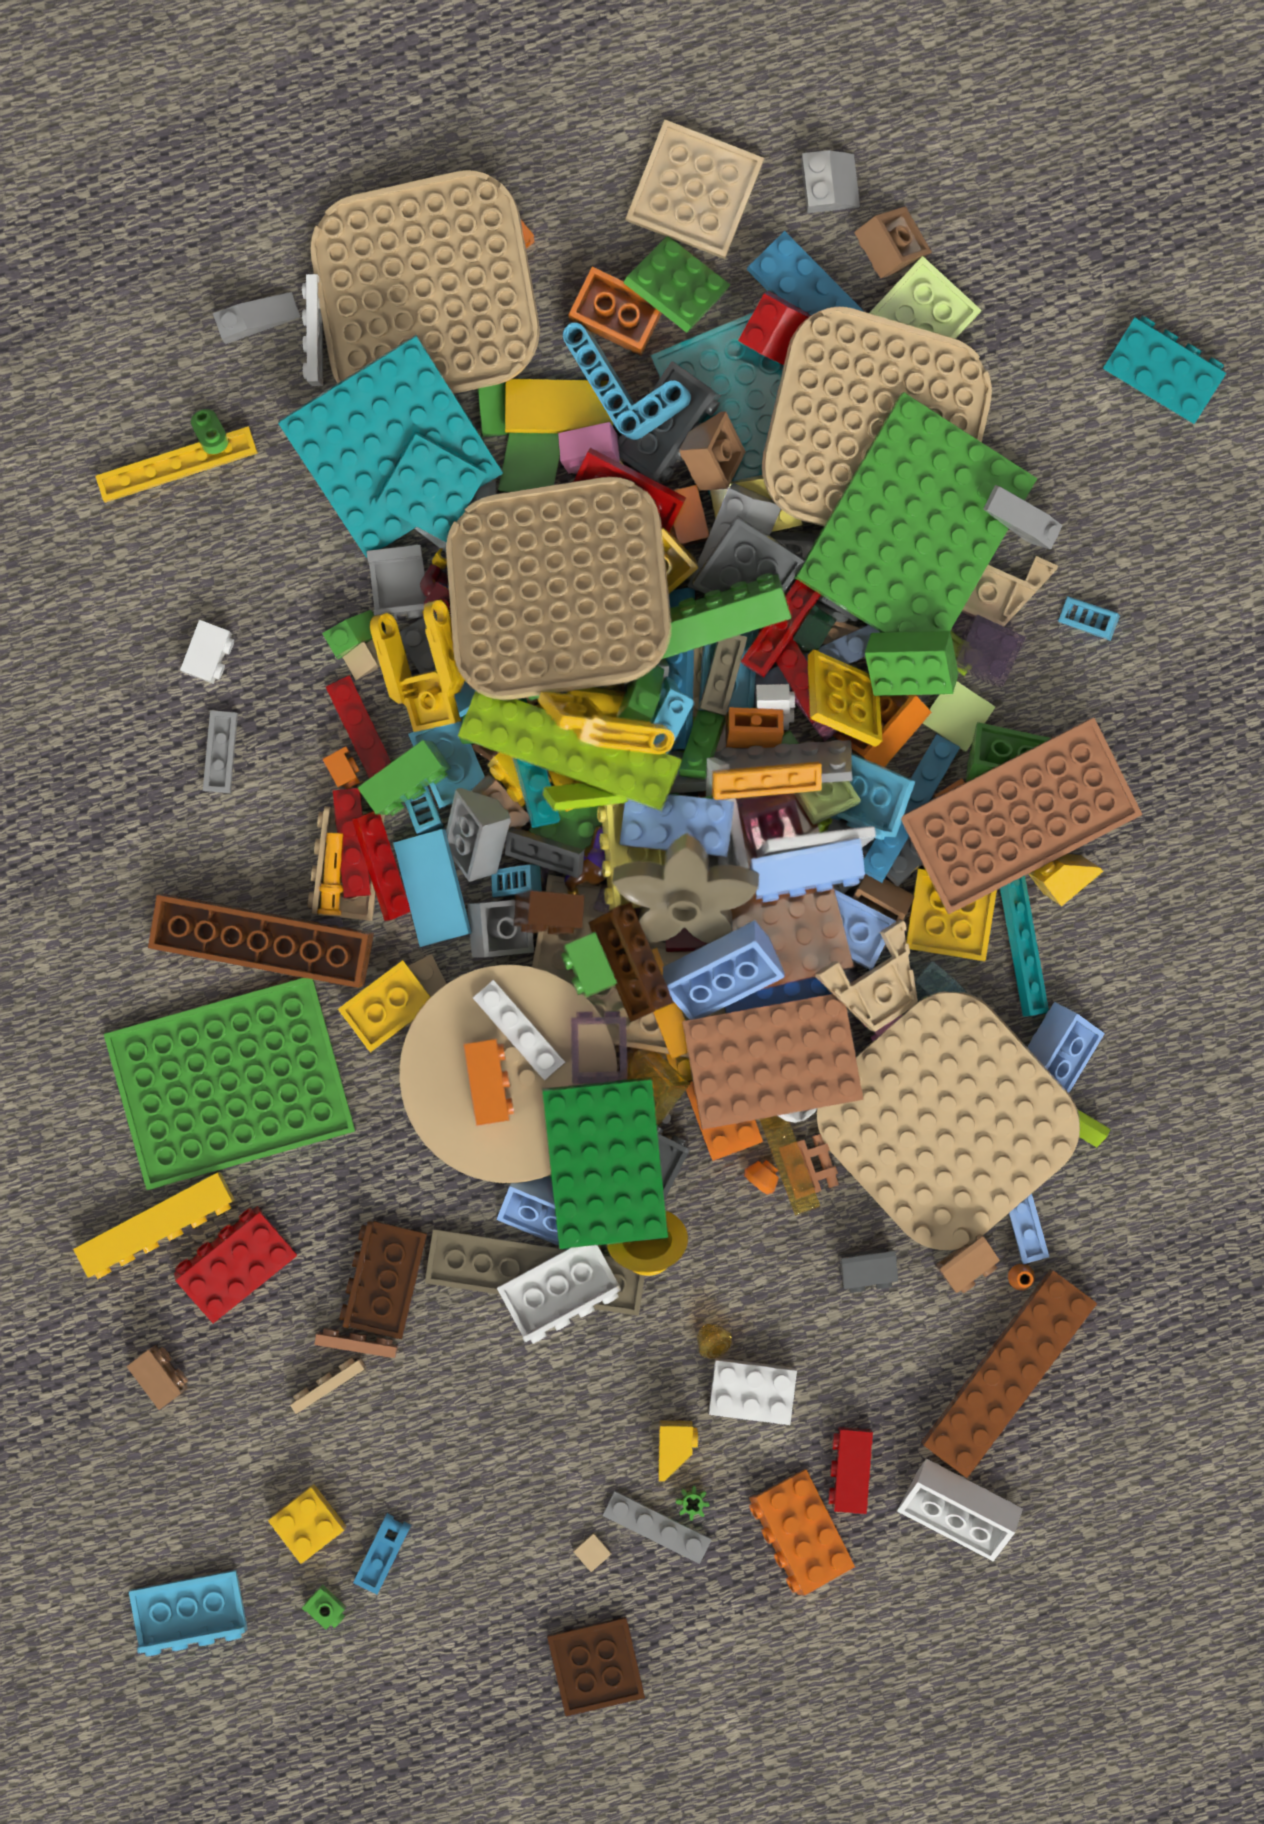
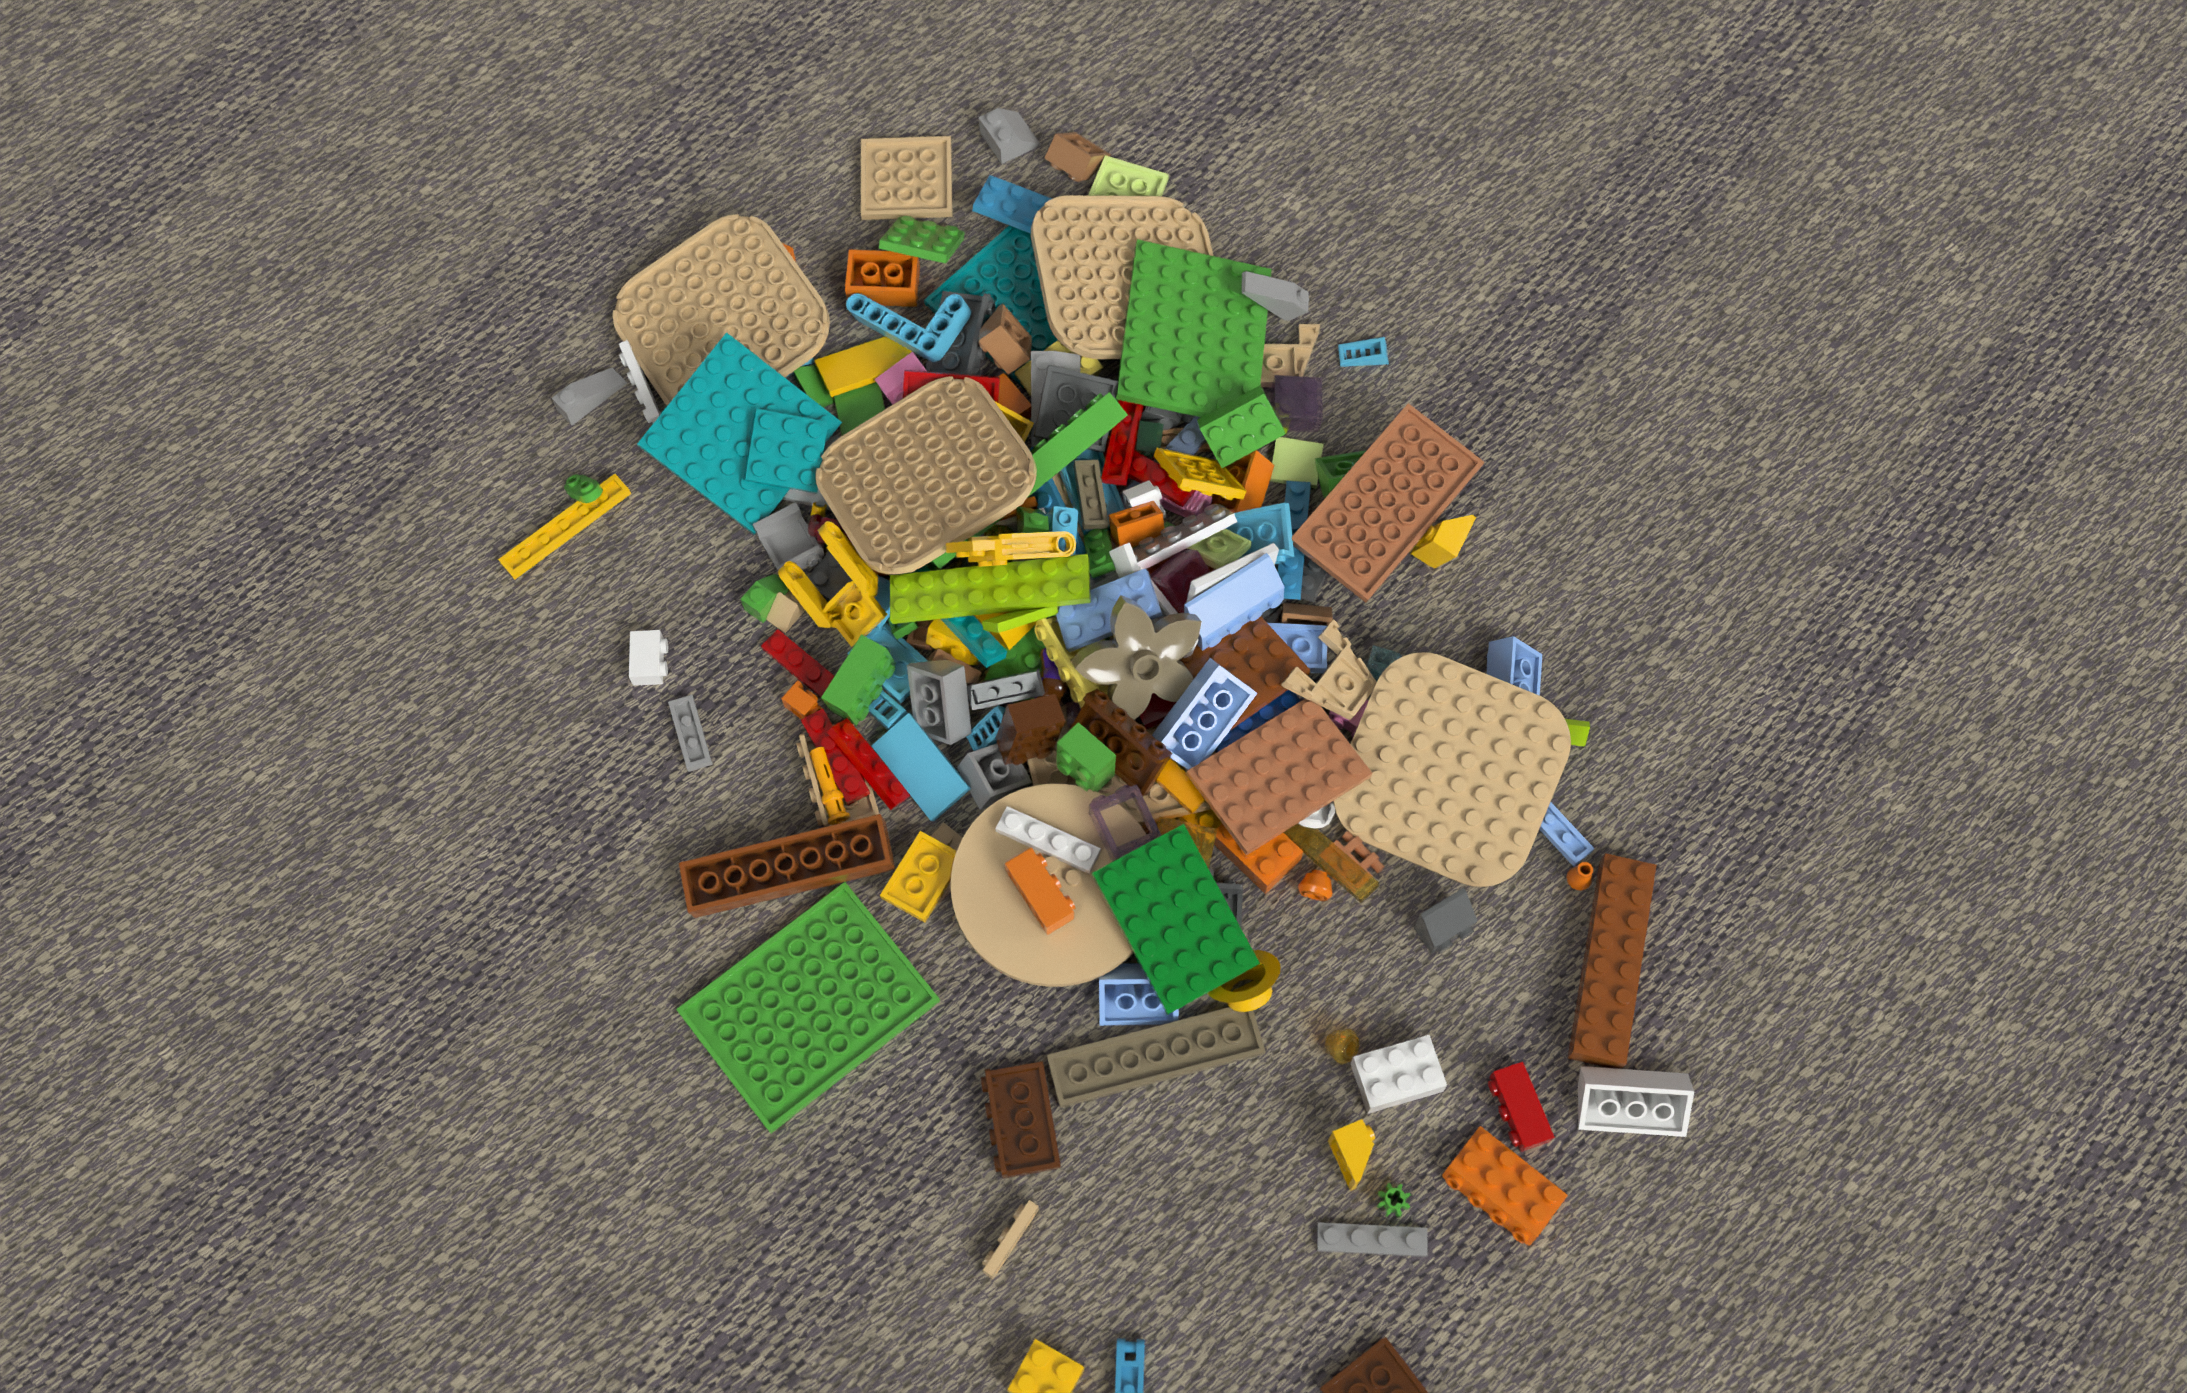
camera: 25 degrees left, 20 degrees down
(153, 1225) = (788, 1161): yellow brick -> none
(158, 1376) = (845, 1299): medium nougat slope -> none
(234, 1264) = (877, 1166): red bracket -> none
(356, 1343) = (1020, 1188): nougat plate -> none
(559, 1290) = (1184, 1056): white bracket -> none
(592, 1552) = (1324, 1290): tan tile -> none
(766, 780) = (1166, 545): light orange tile -> none
(772, 327) = (1012, 237): red slope -> none
(956, 934) = (1377, 622): yellow plate -> none
(967, 1264) = (1529, 881): medium nougat slope -> none
(1024, 948) = (1440, 611): teal plate -> none
(1165, 369) = (1330, 161): teal bracket -> none

